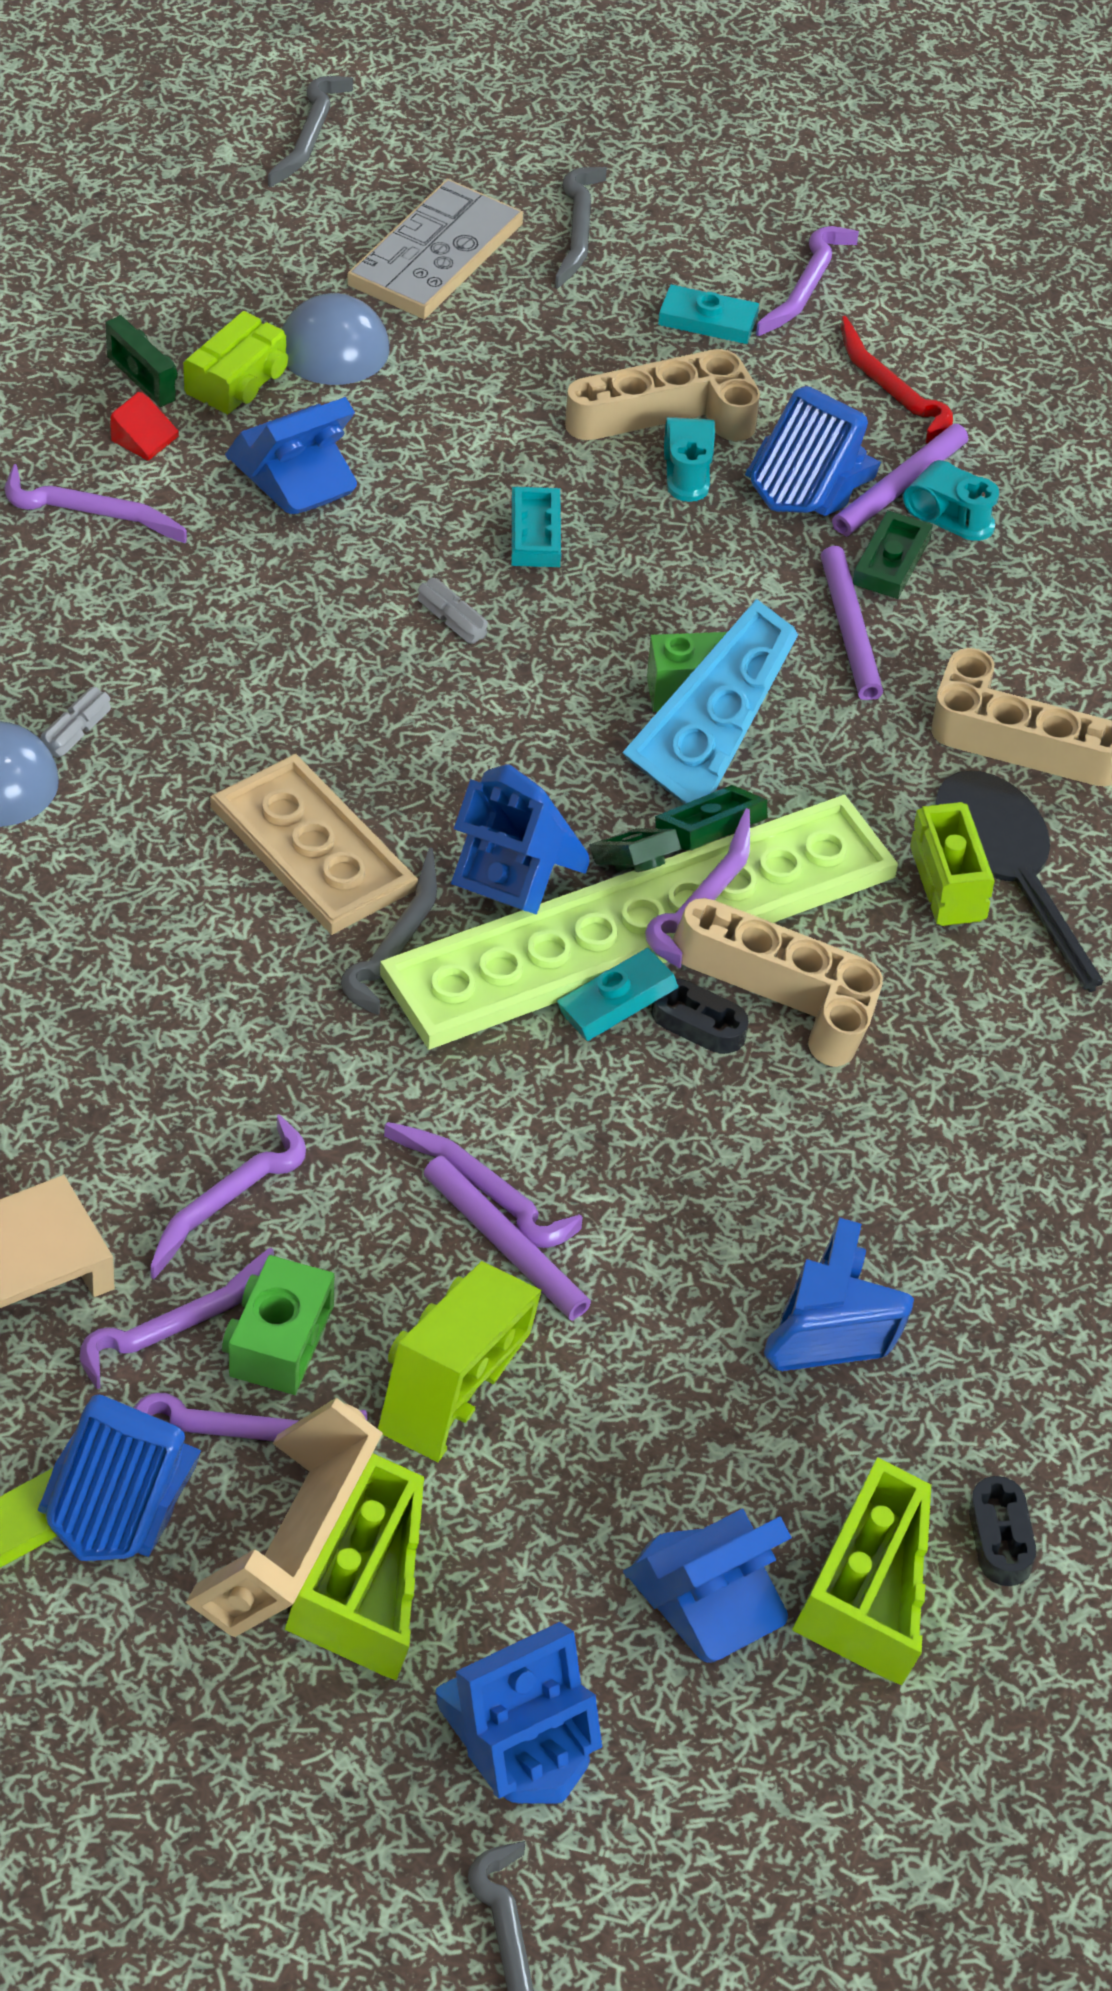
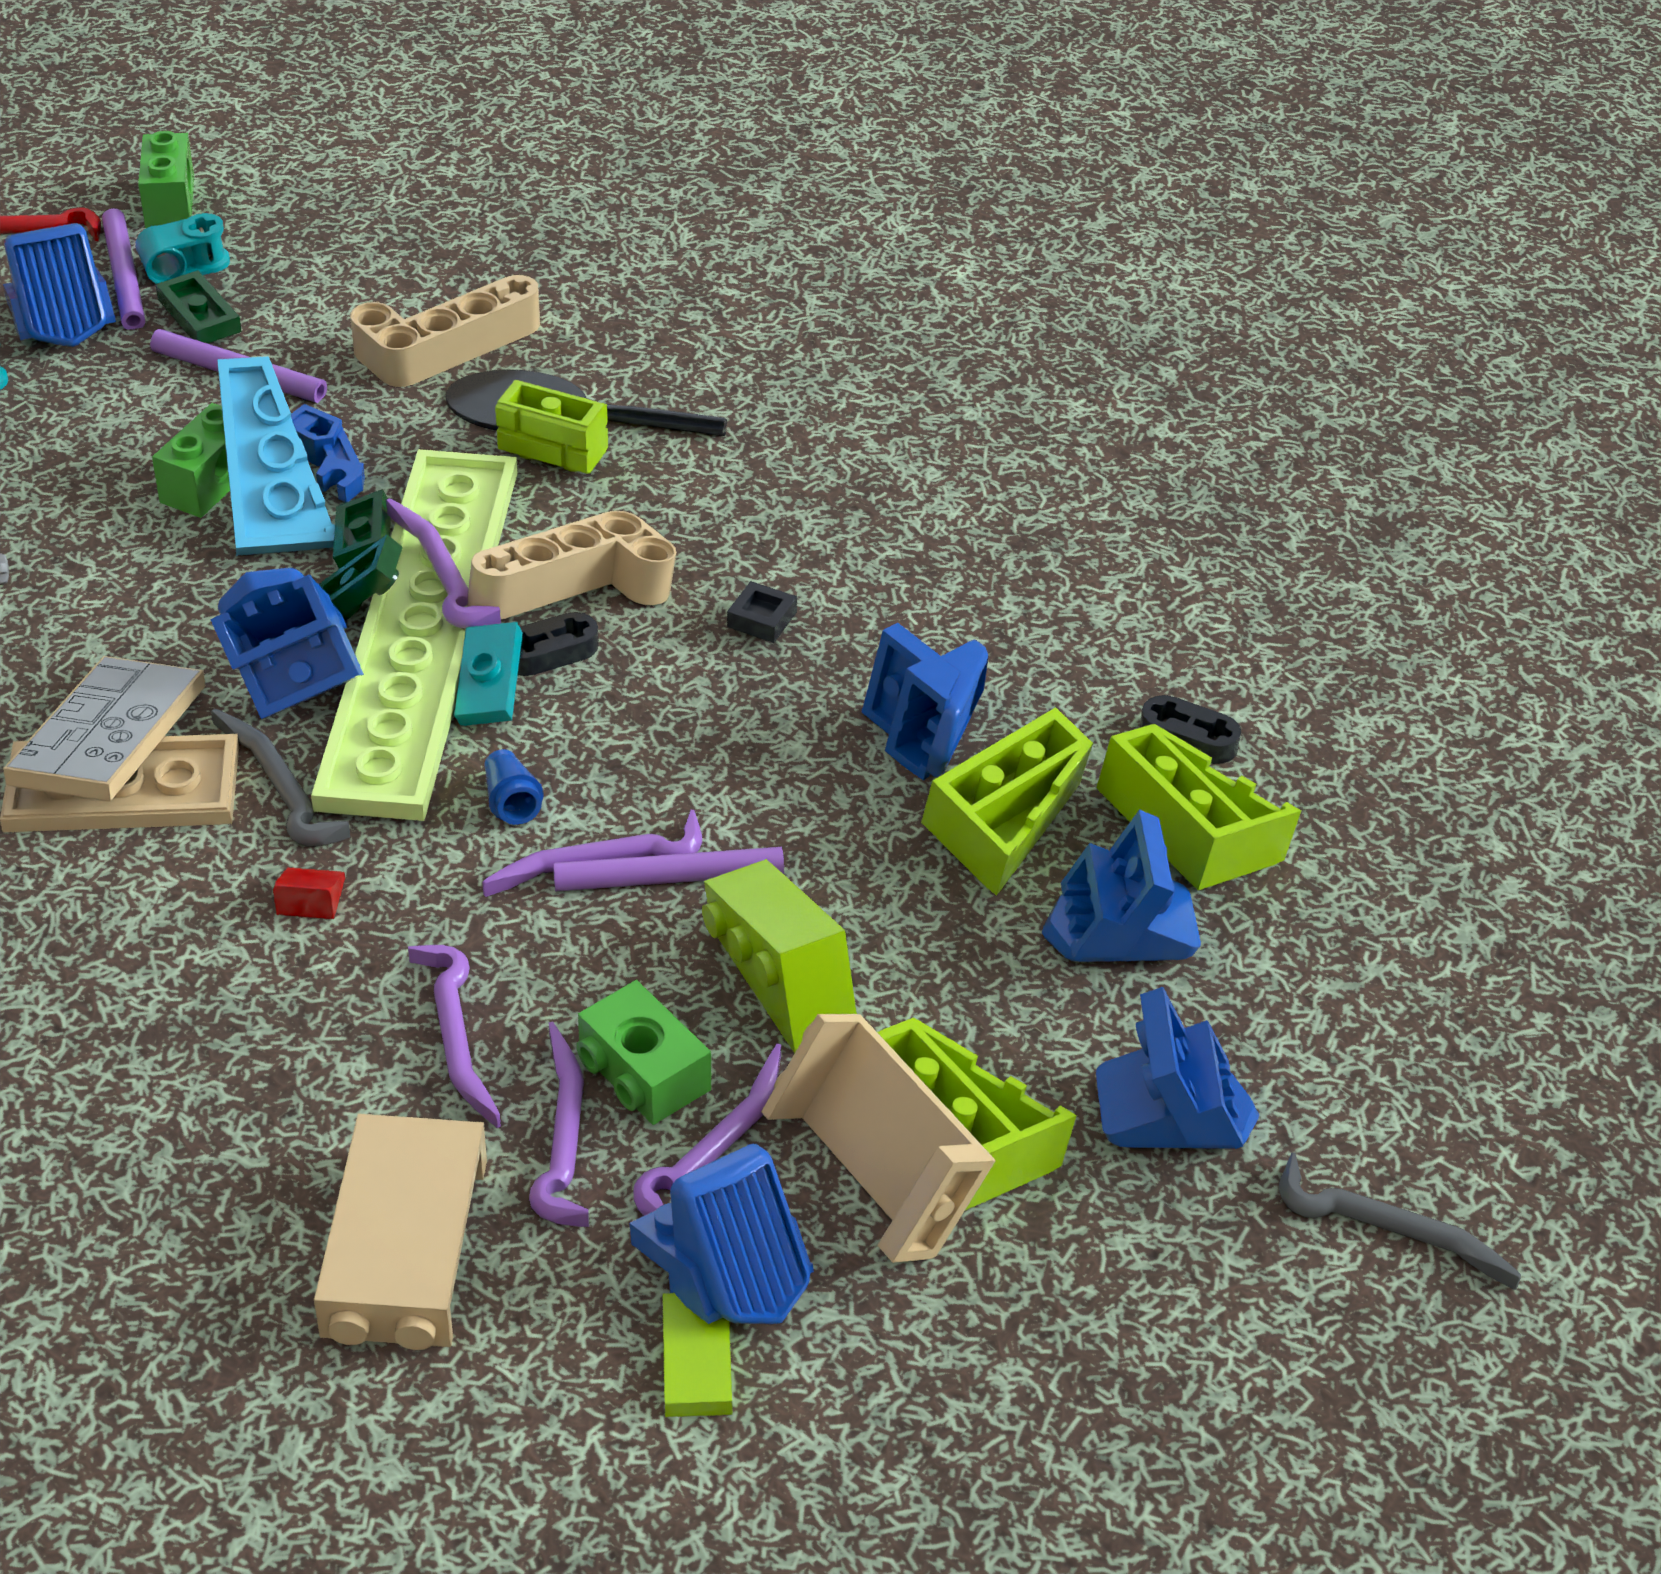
camera: 55 degrees left, 5 degrees down
(292, 1020) = (308, 892): none -> red slope
(346, 796) = (104, 728): none -> light grey tile
(503, 1082) = (511, 788): none -> blue cone
(771, 1428) = (1007, 796): none -> lime wedge
(805, 736) = (329, 447): none -> blue piece
(866, 1137) = (762, 611): none -> black plate
(1028, 434) = (166, 178): none -> bright green brick

